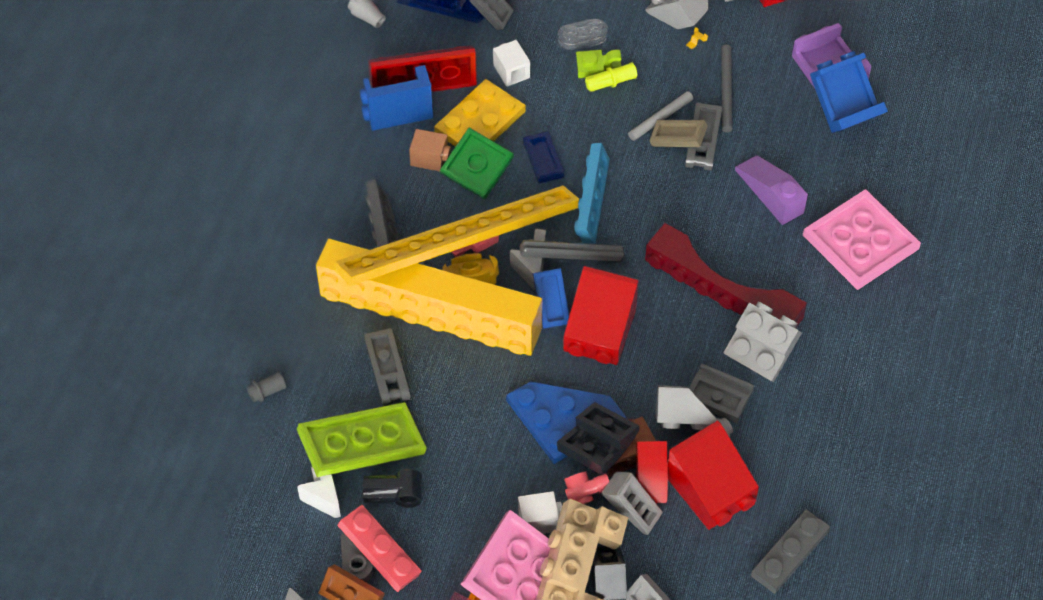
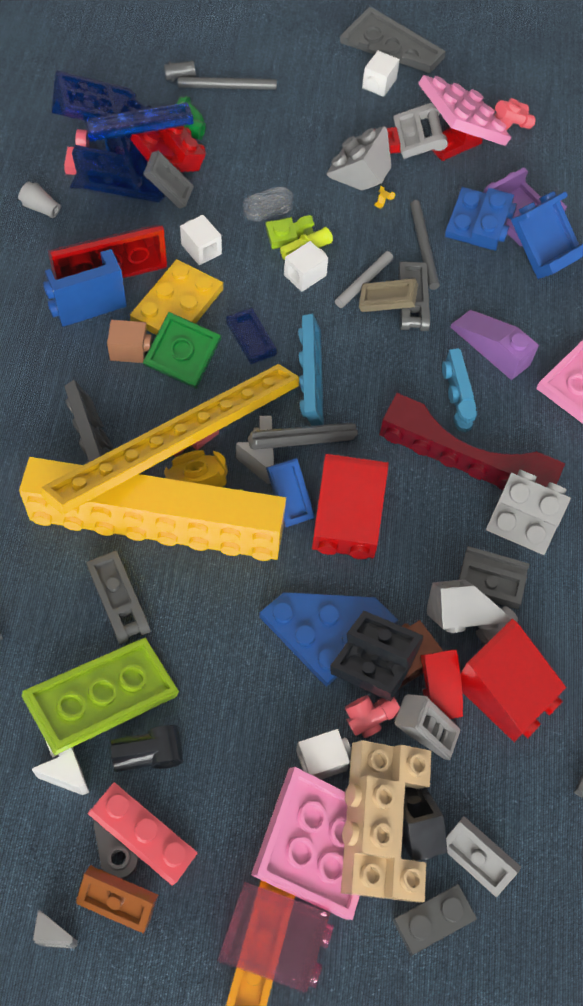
camera: 15 degrees left, 5 degrees up
(606, 97) = (306, 266): none -> white brick
(727, 229) = (459, 390): none -> dark azure hinge
(786, 68) = (481, 217): none -> blue plate

